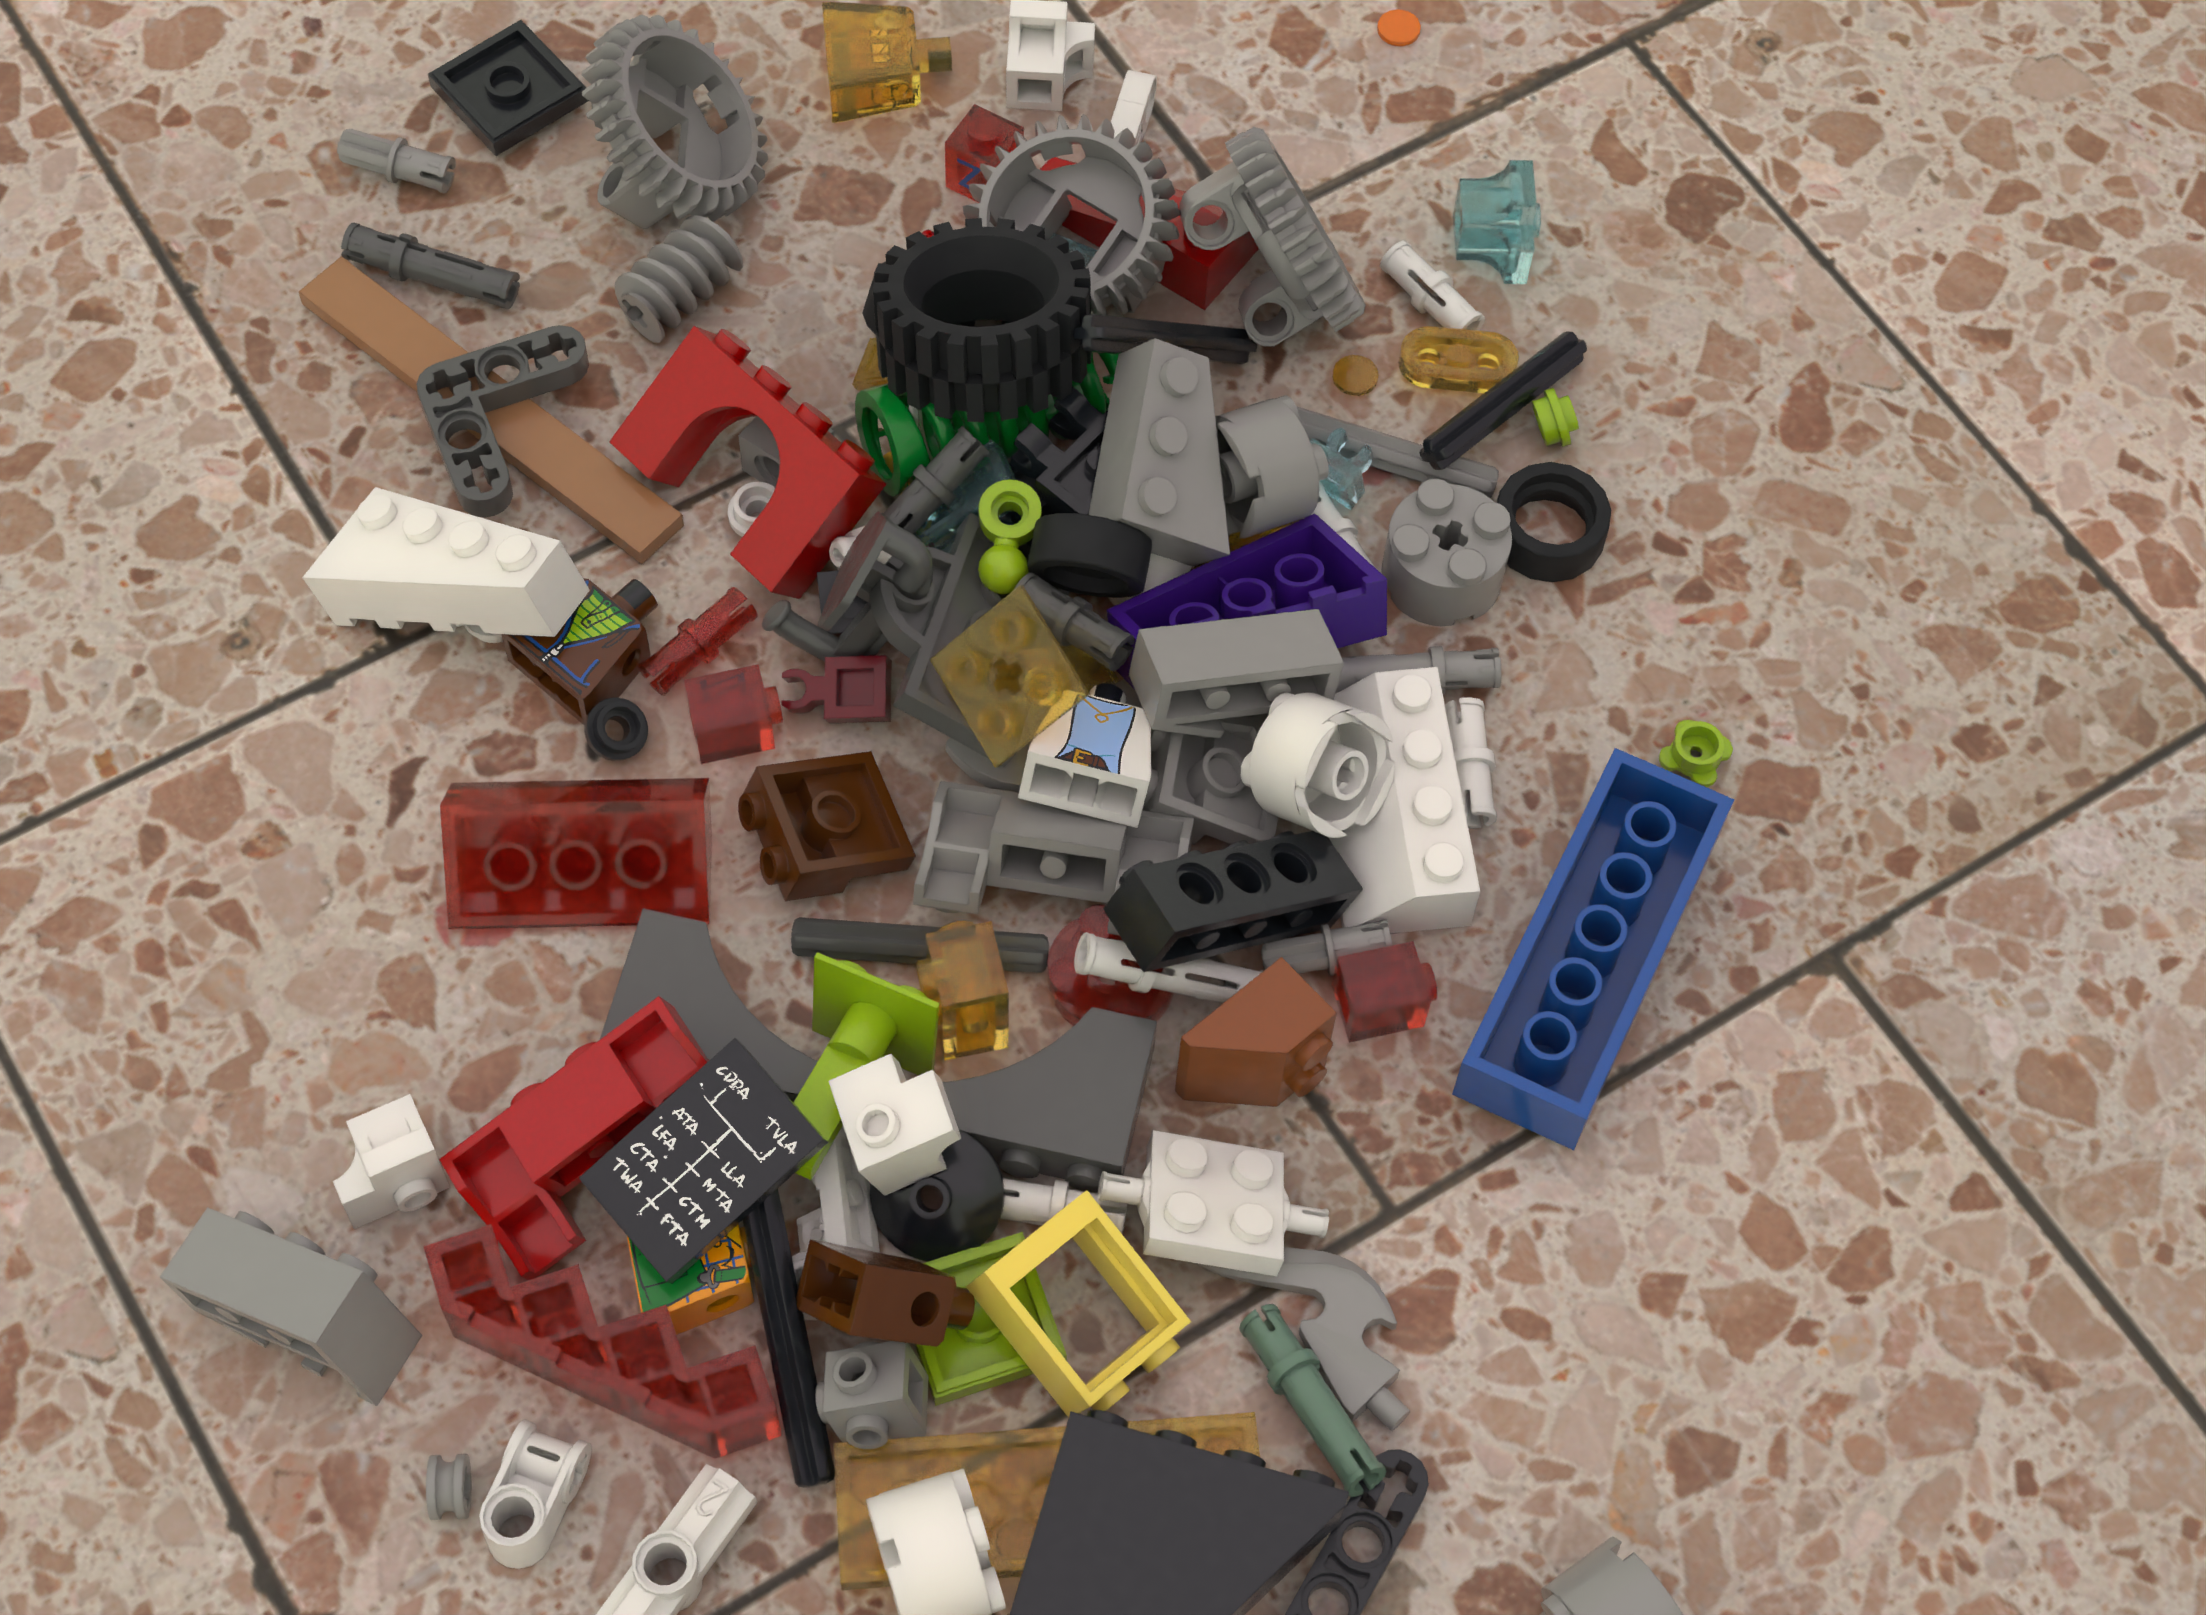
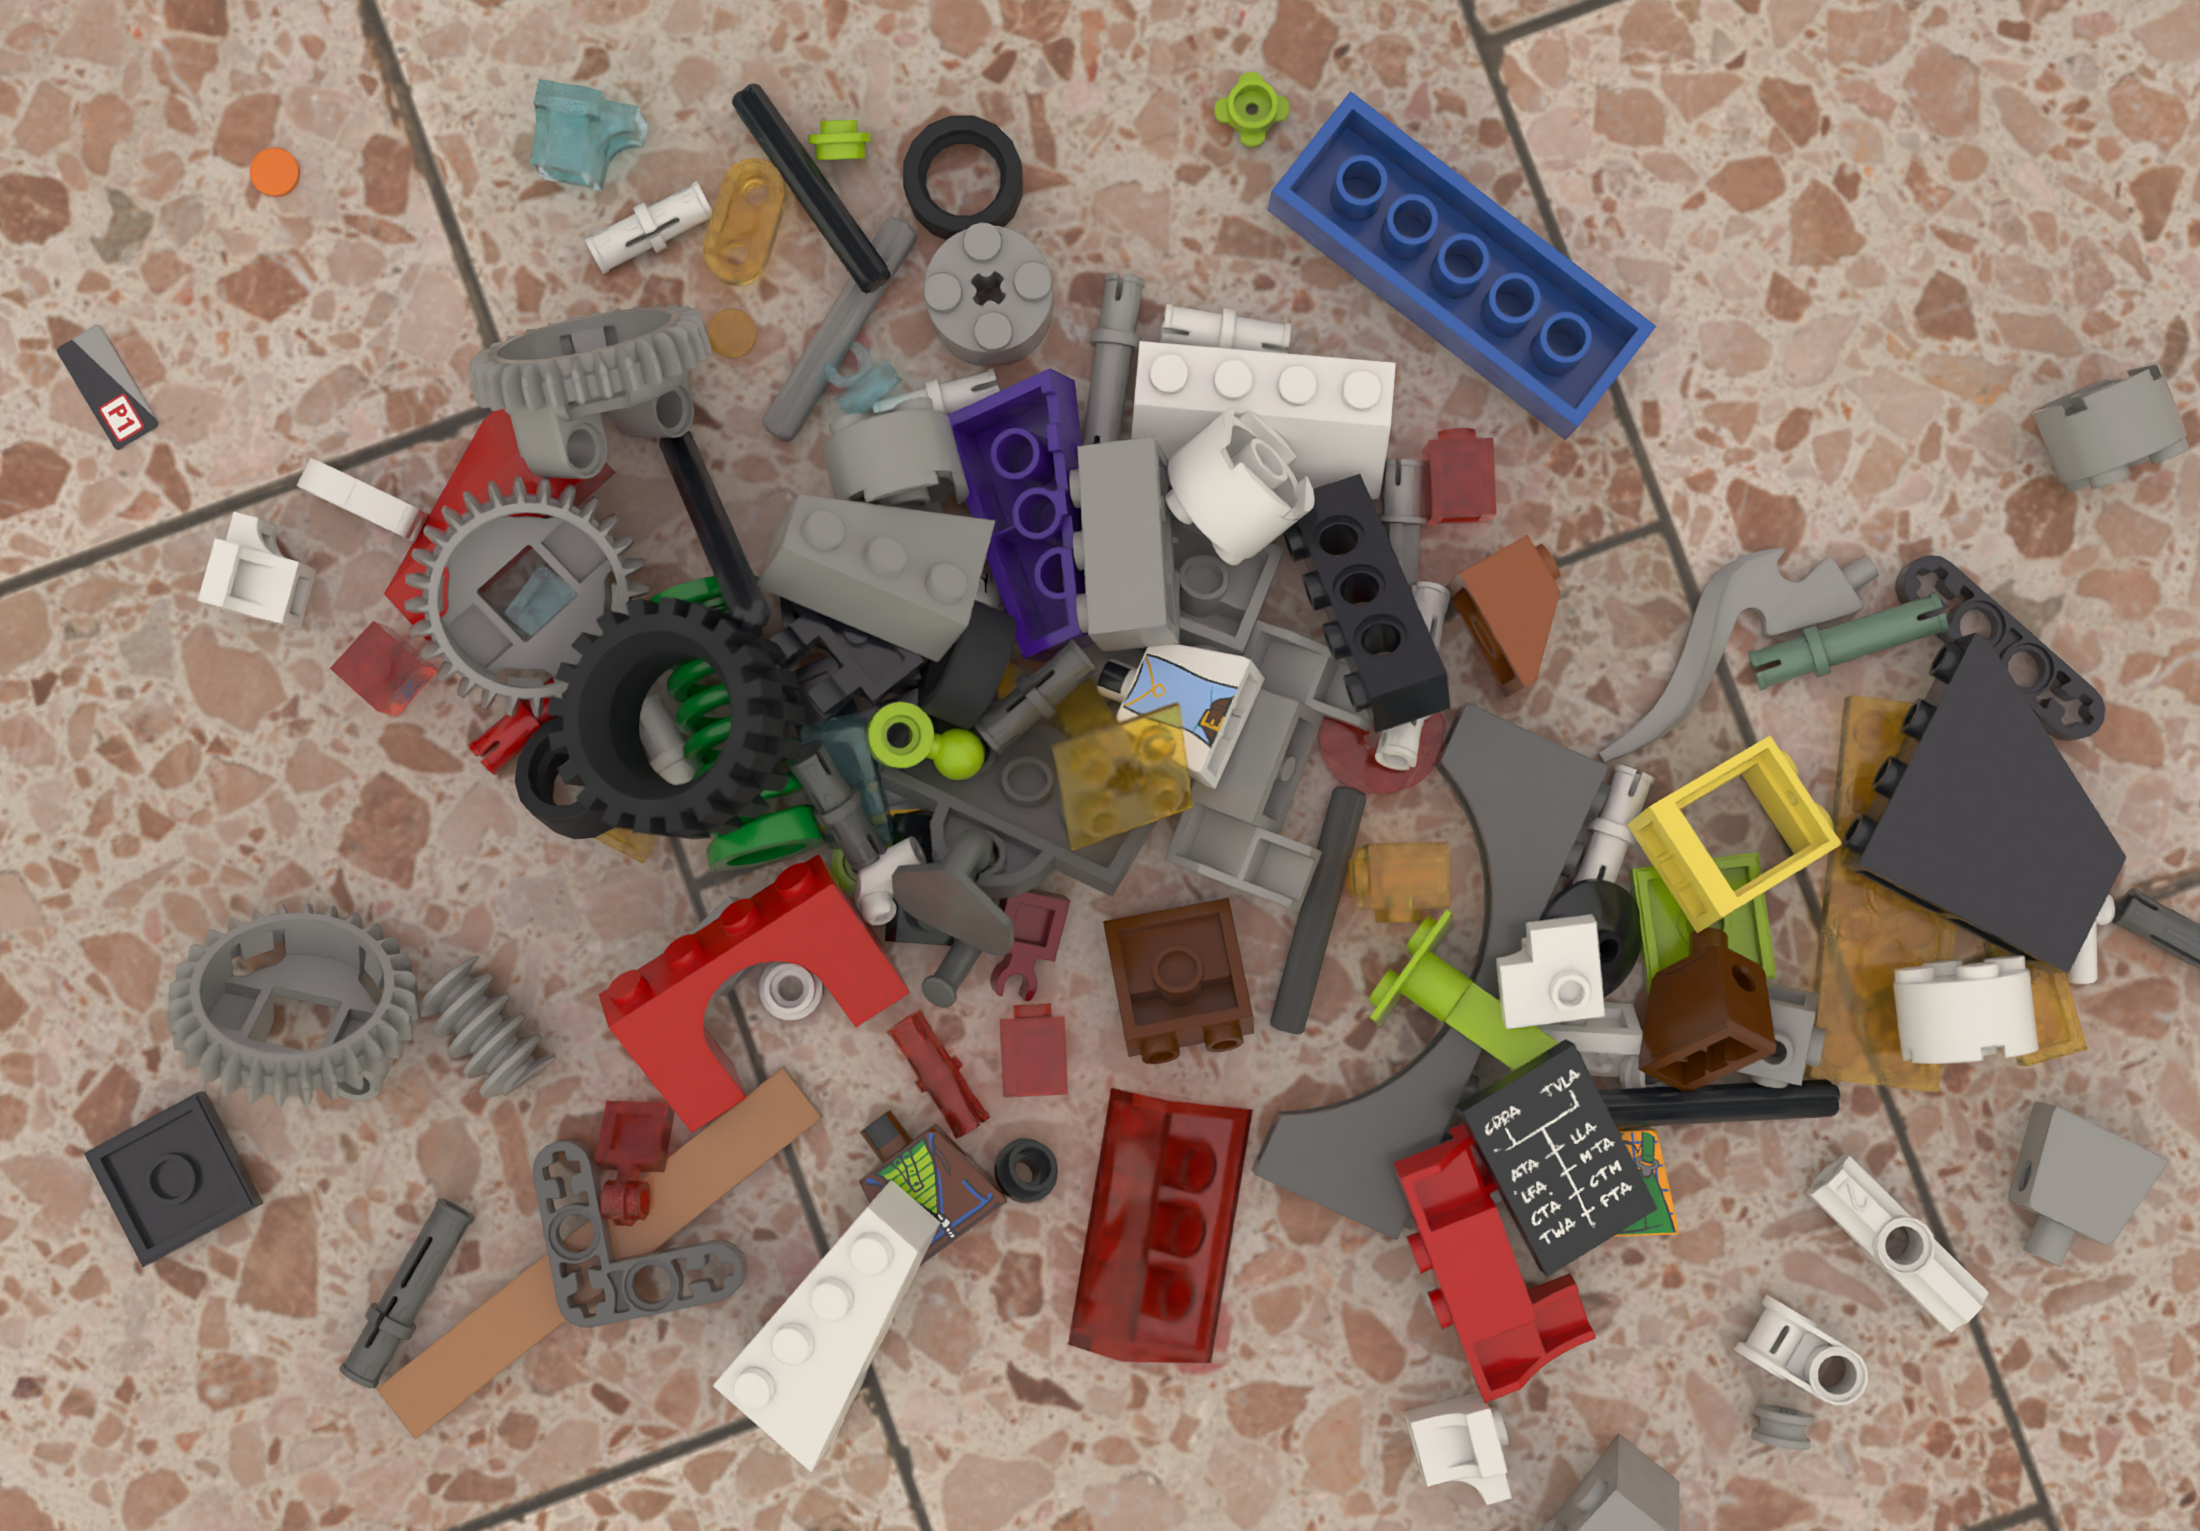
camera: 75 degrees left, 25 degrees up
(396, 160) = (254, 1313): light grey axle -> none
(591, 405) = (631, 1142): none -> clear red plate
(622, 1366) = (1674, 1309): clear red brick -> none
(877, 58) = (218, 762): clear yellow torso -> none
(1213, 1203) = (1647, 688): white plate -> none

